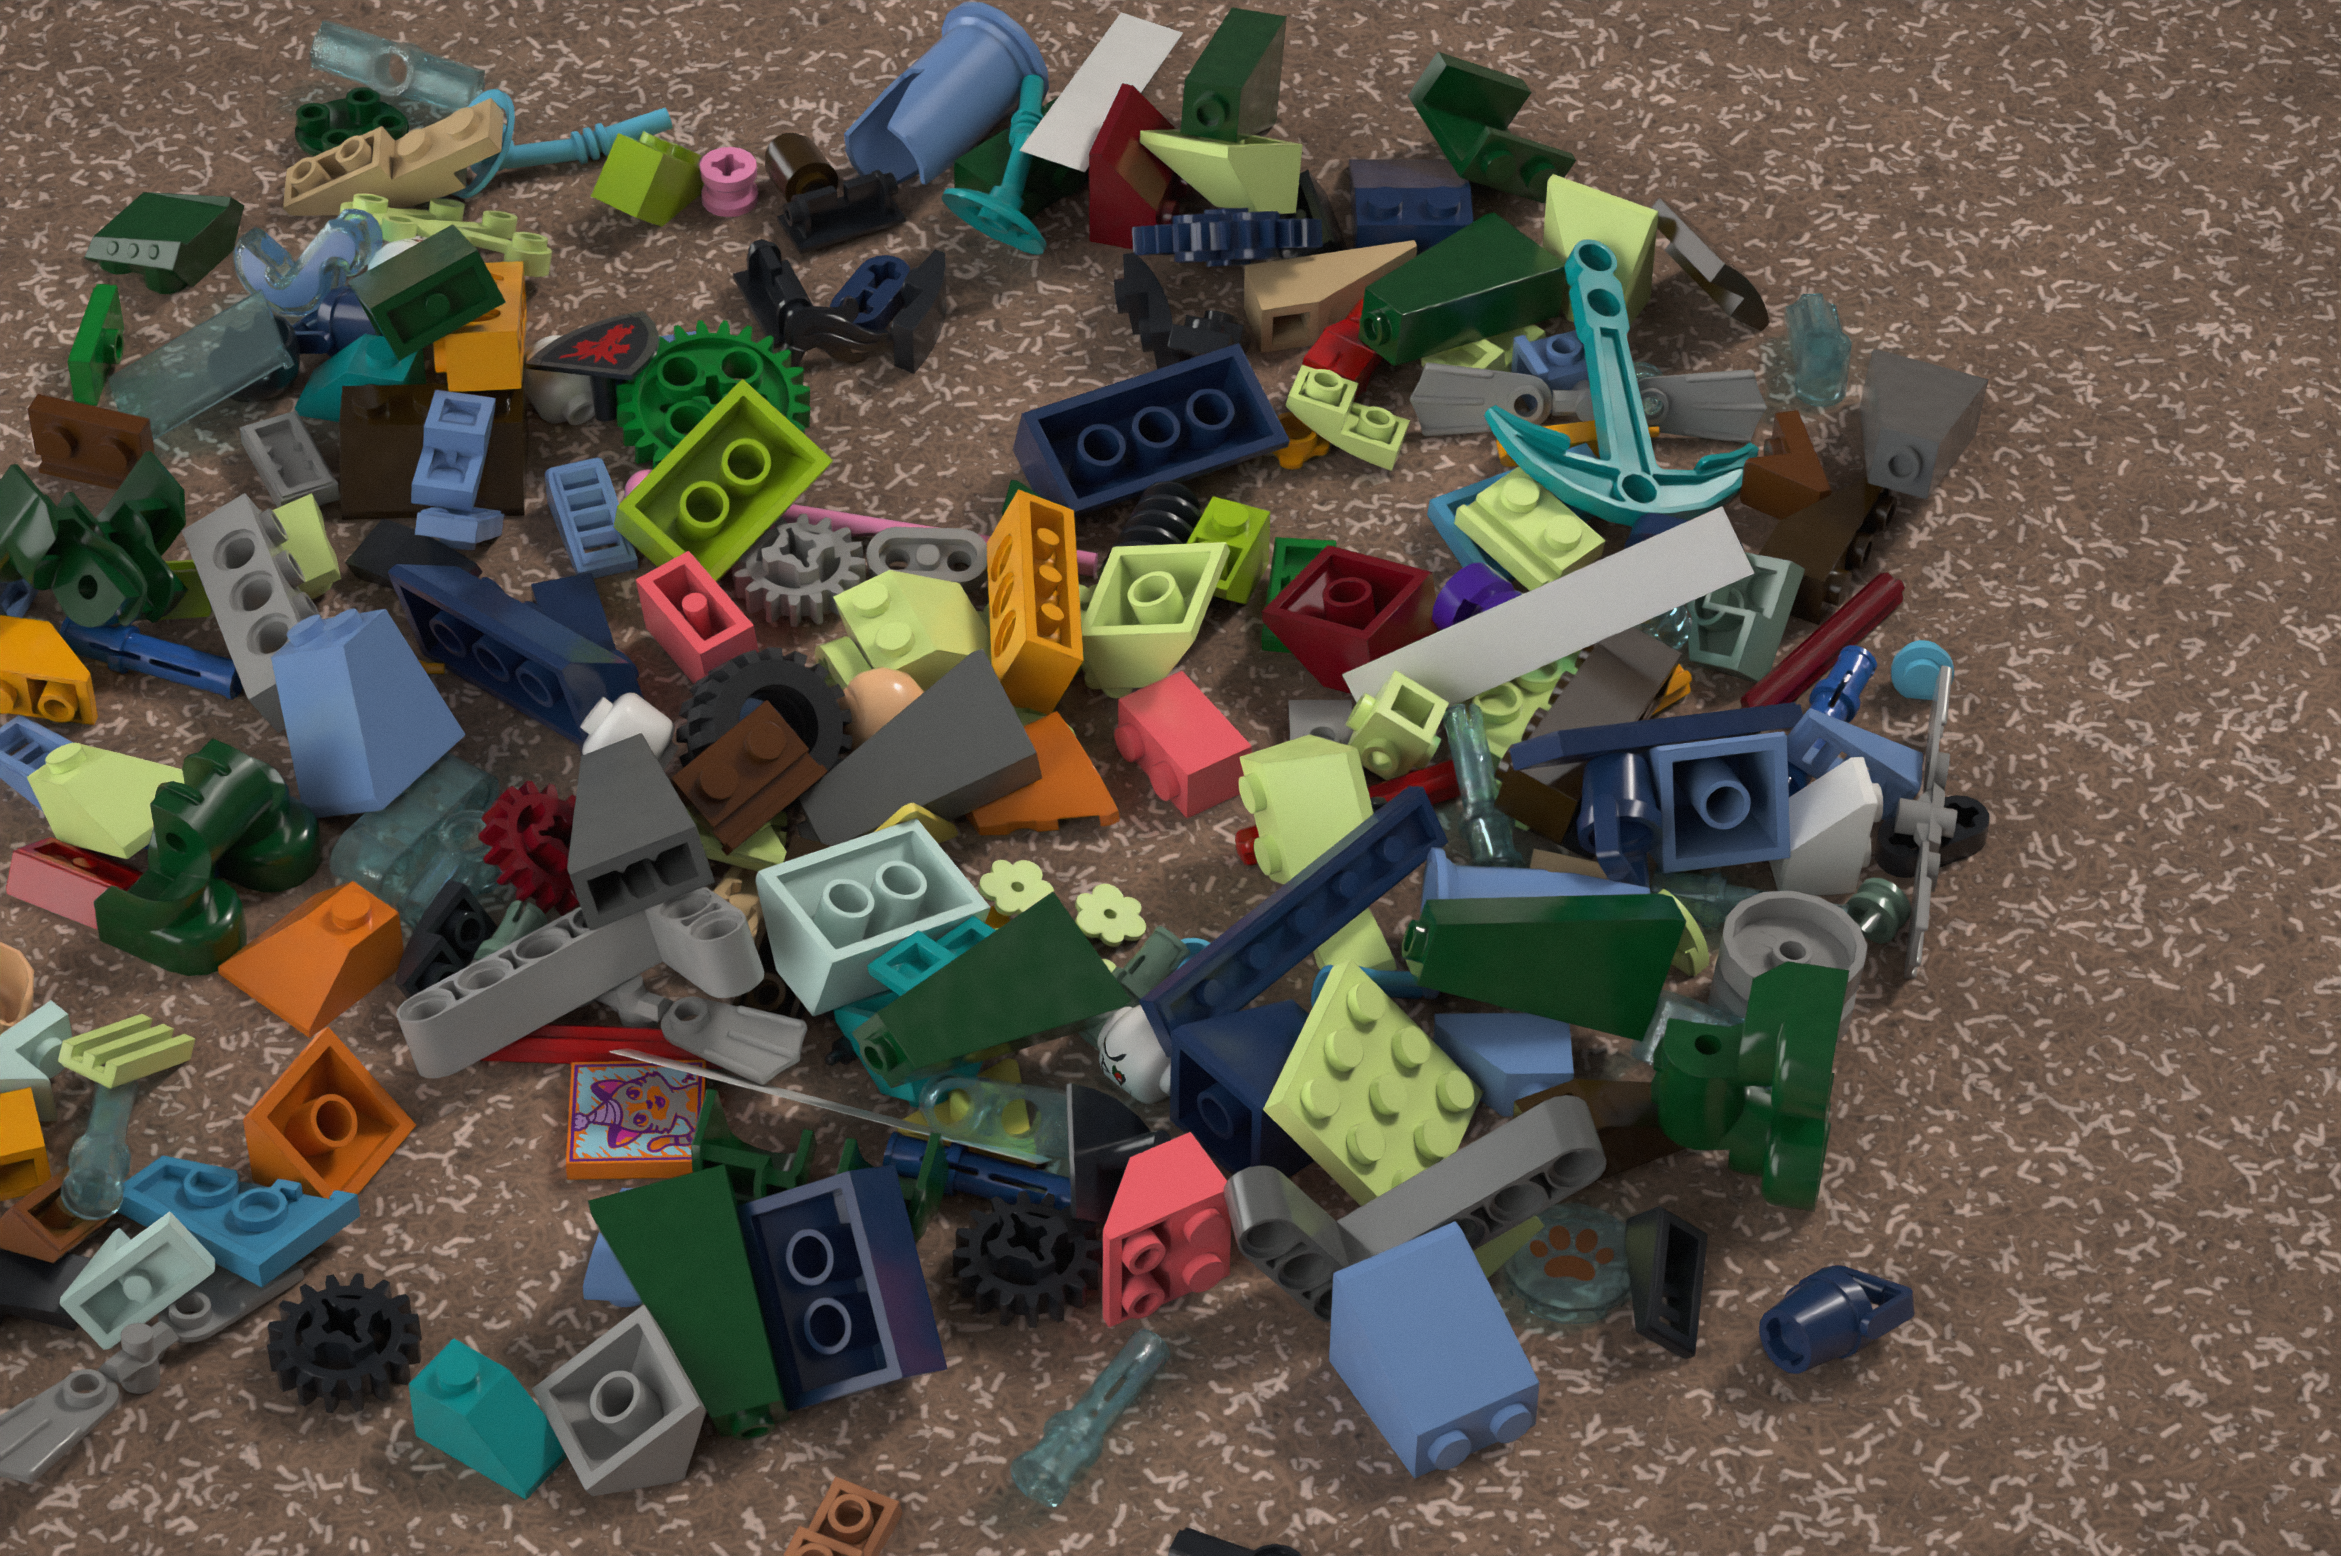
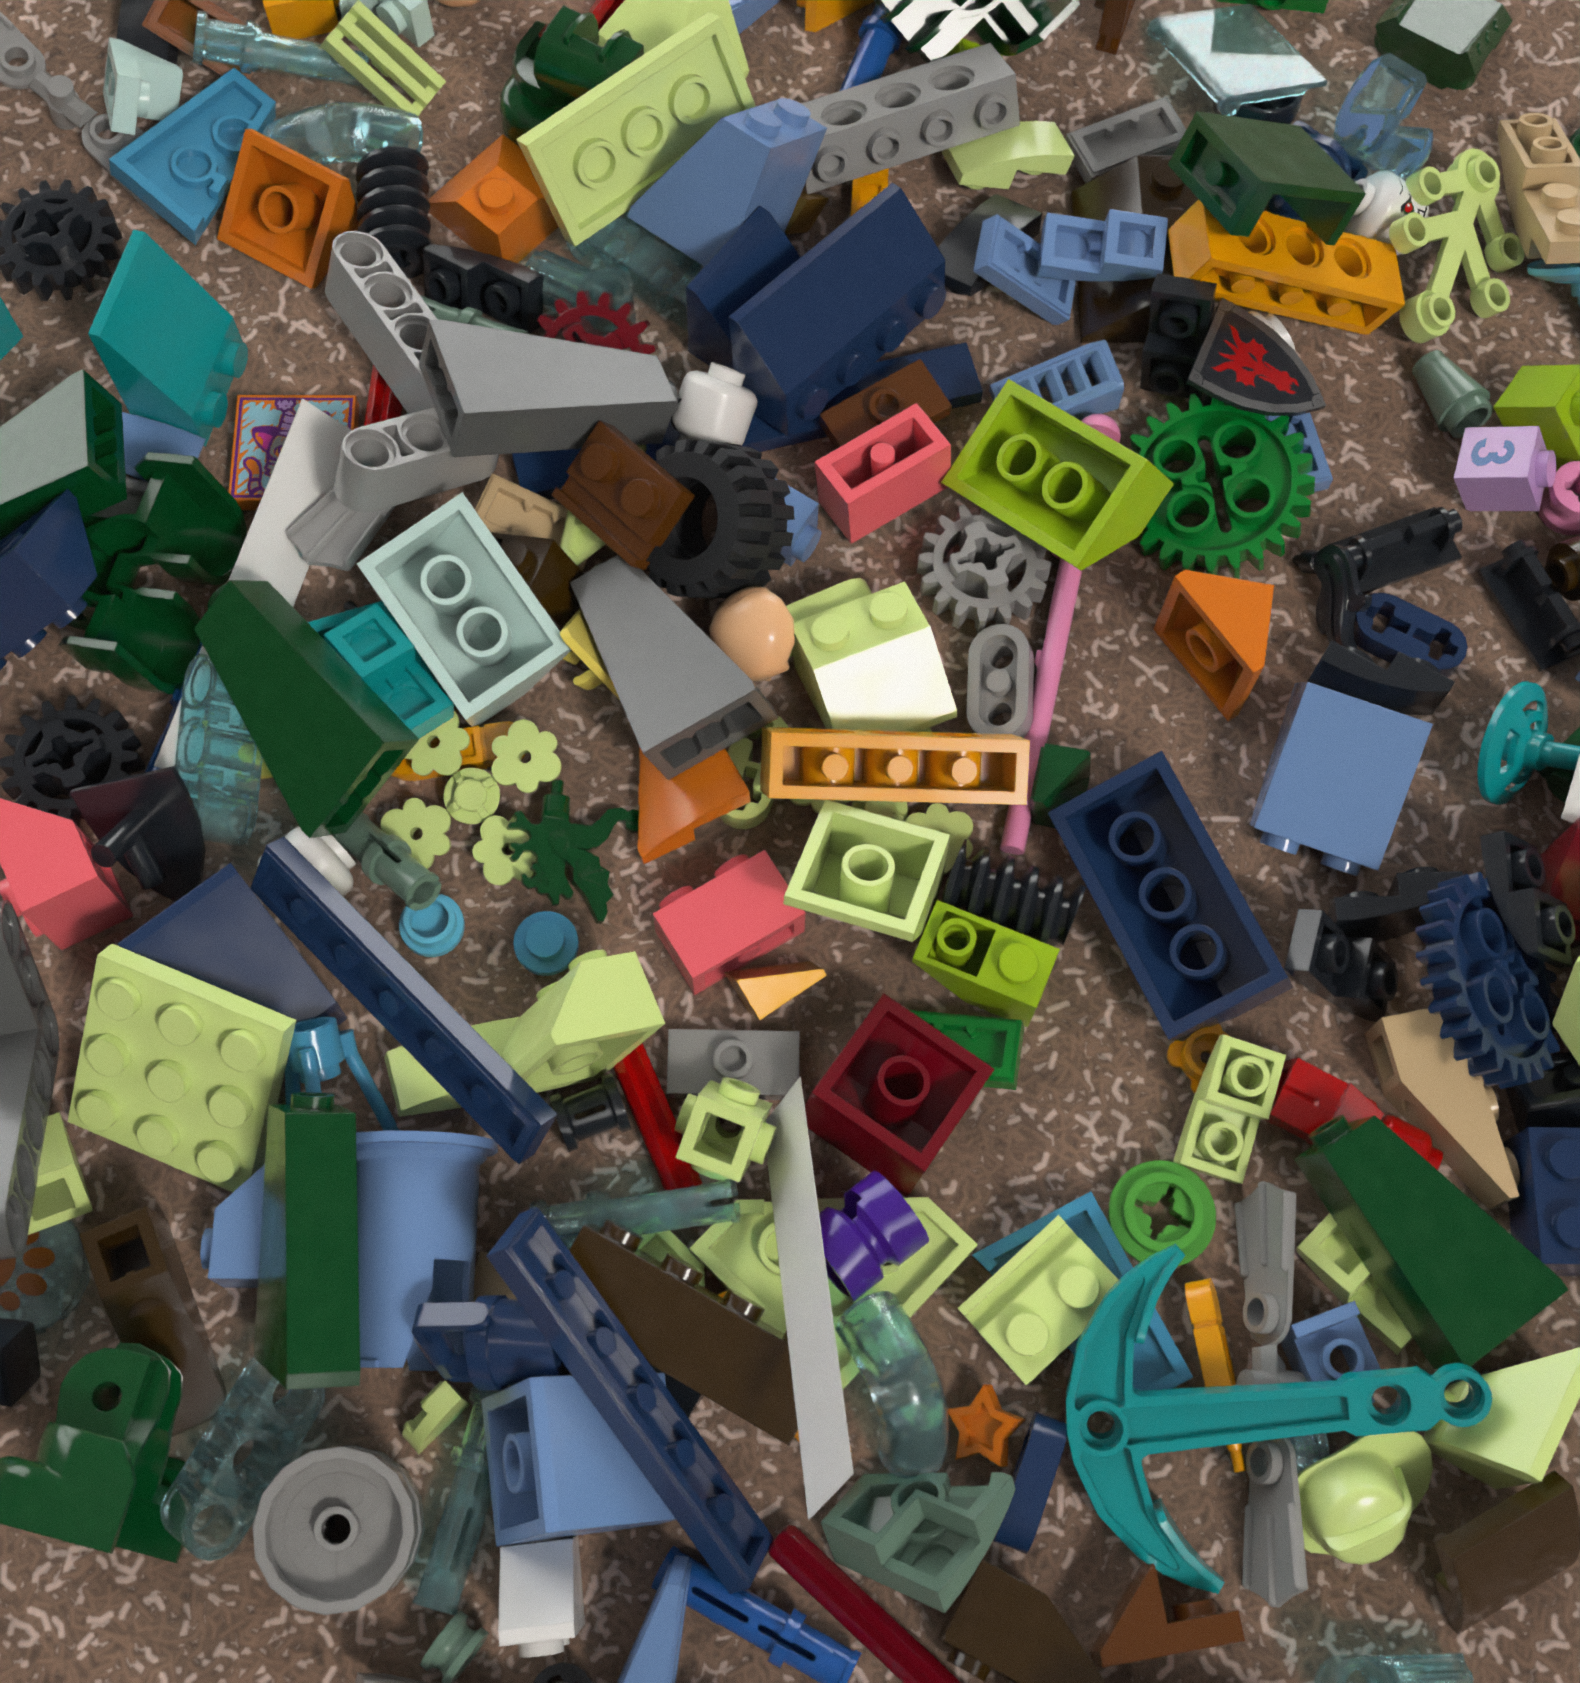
camera: 90 degrees right, 25 degrees up
(233, 1077) = (346, 131): none -> clear light blue cylinder
(297, 767) = (634, 127): none -> yellowish green plate
(360, 1027) = (395, 203): none -> black piece
(500, 730) = (732, 277): none -> dark blue slope
(527, 1183) = (167, 341): none -> teal slope
(555, 414) = (1177, 326): none -> black slope
(611, 252) = (1451, 394): none -> sand green cone
(619, 622) = (883, 401): none -> reddish brown plate
(705, 213) = (1504, 468): none -> lavender brick
(897, 390) = (1218, 633): none -> orange slope
(1022, 333) = (1338, 777): none -> medium blue slope
(1127, 867) = (561, 843): none -> dark green piece
(1177, 197) = (1534, 918): none -> black slope
(1208, 885) = (546, 943): none -> dark azure plate
(1247, 714) = (770, 987): none -> piece
(1430, 457) = (1189, 1202): none -> bright green gear
(1679, 344) = (1364, 1496): none -> yellowish green piece

